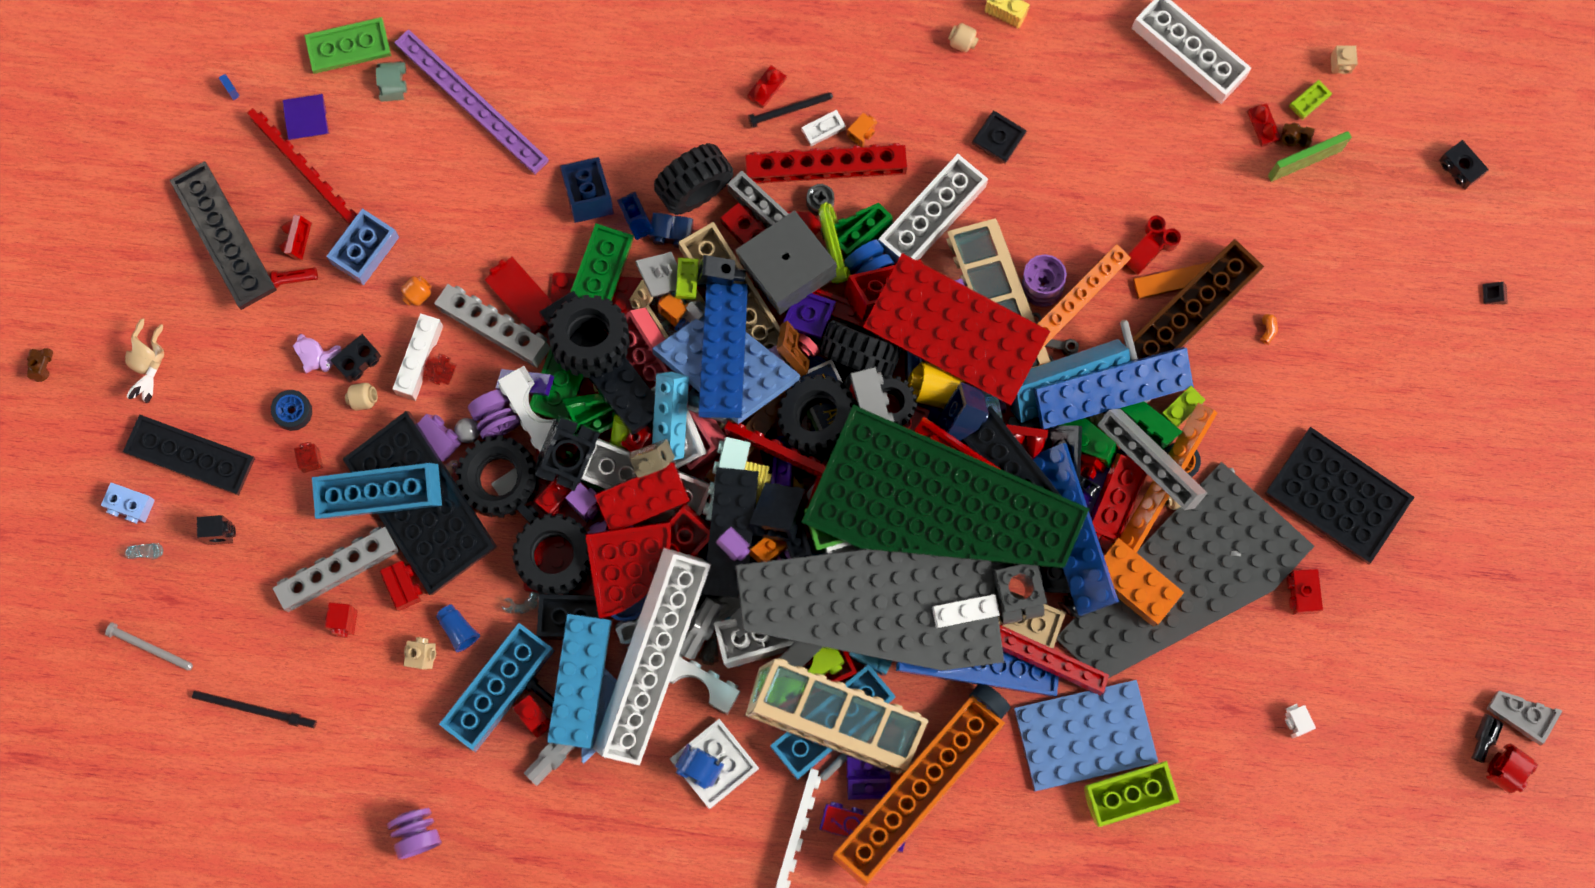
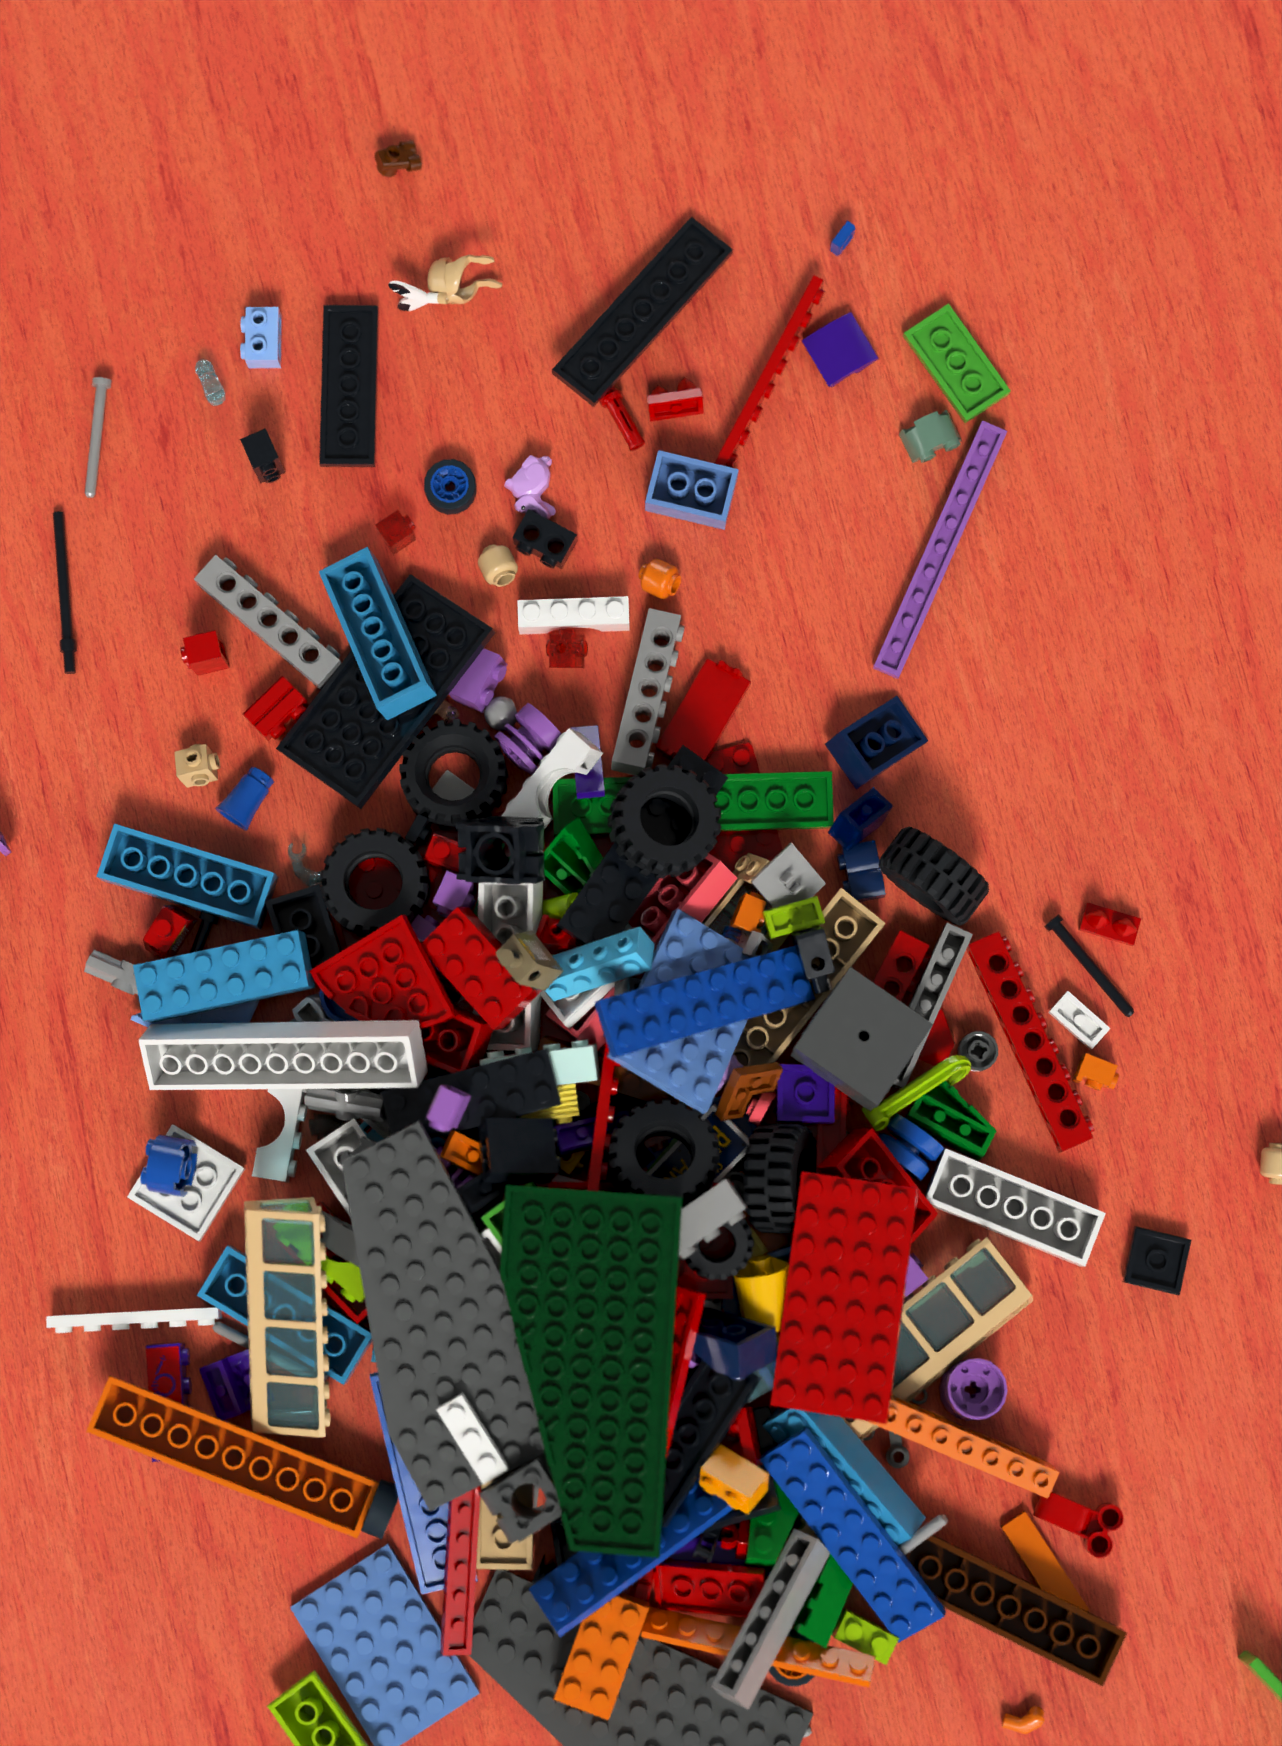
camera: 75 degrees right, 5 degrees up
(1052, 447) = (733, 1479): none -> light orange brick

